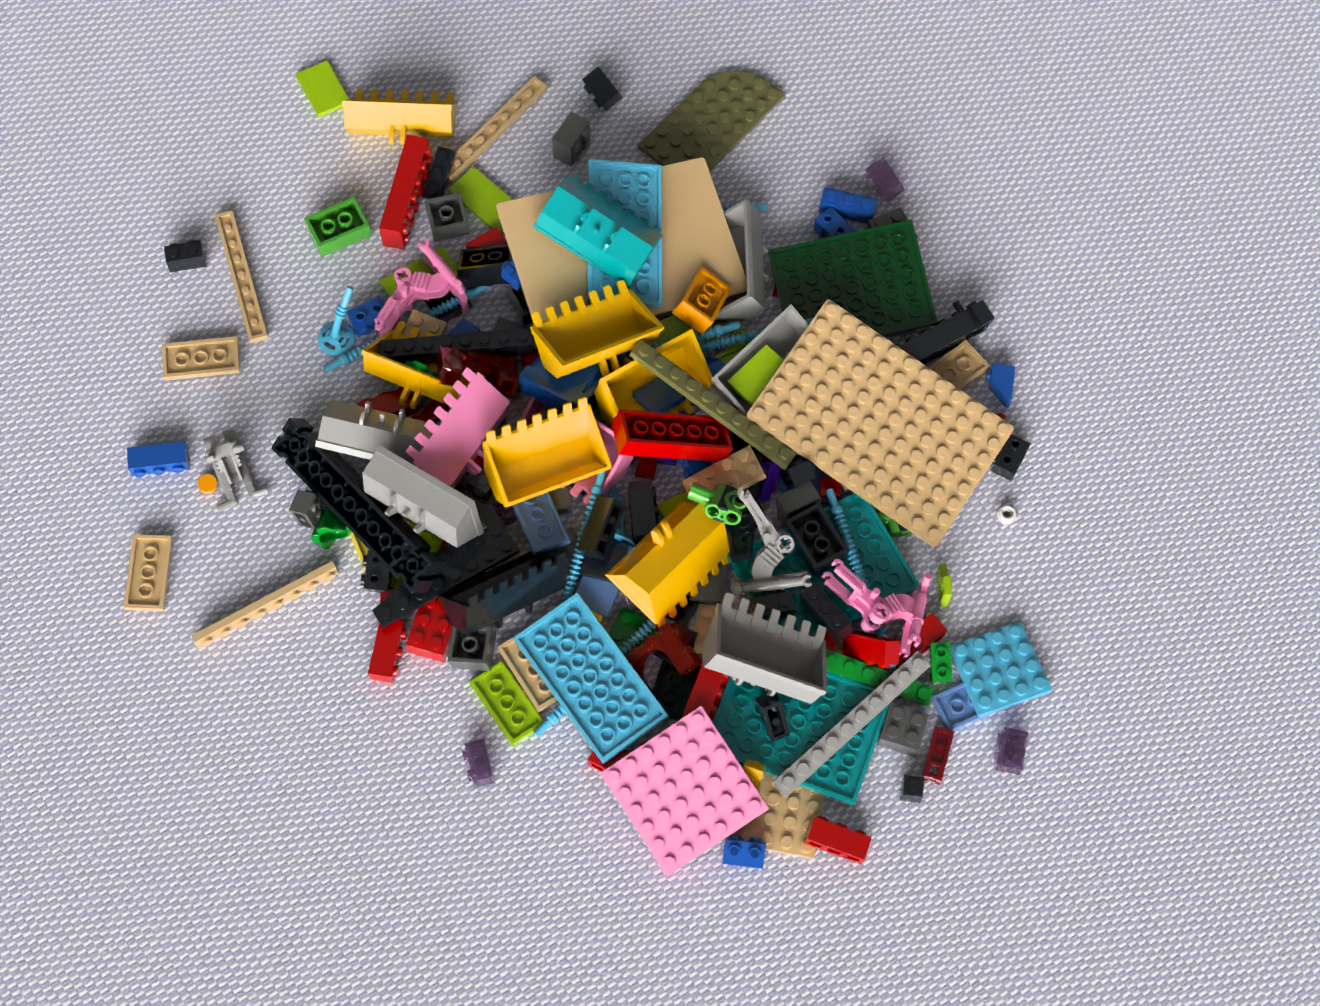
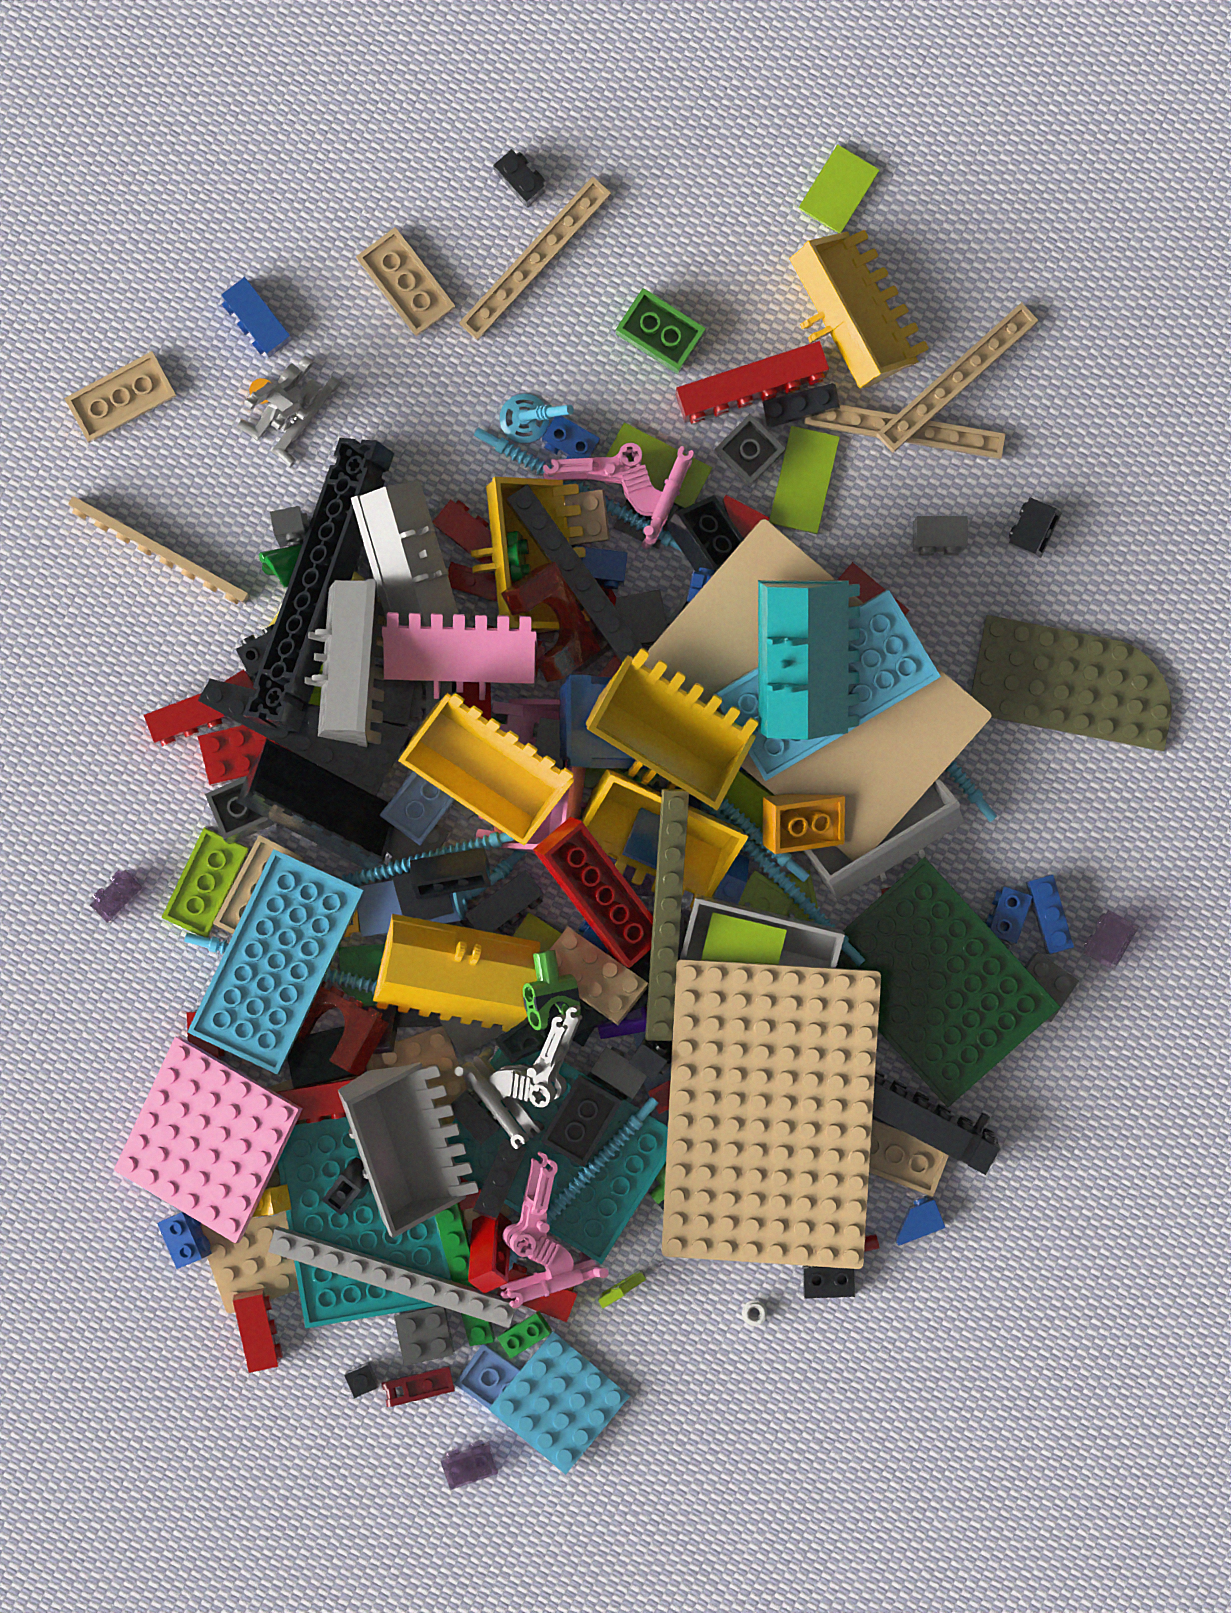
camera: 60 degrees right, 20 degrees up
(482, 83) = (957, 377): none -> tan plate

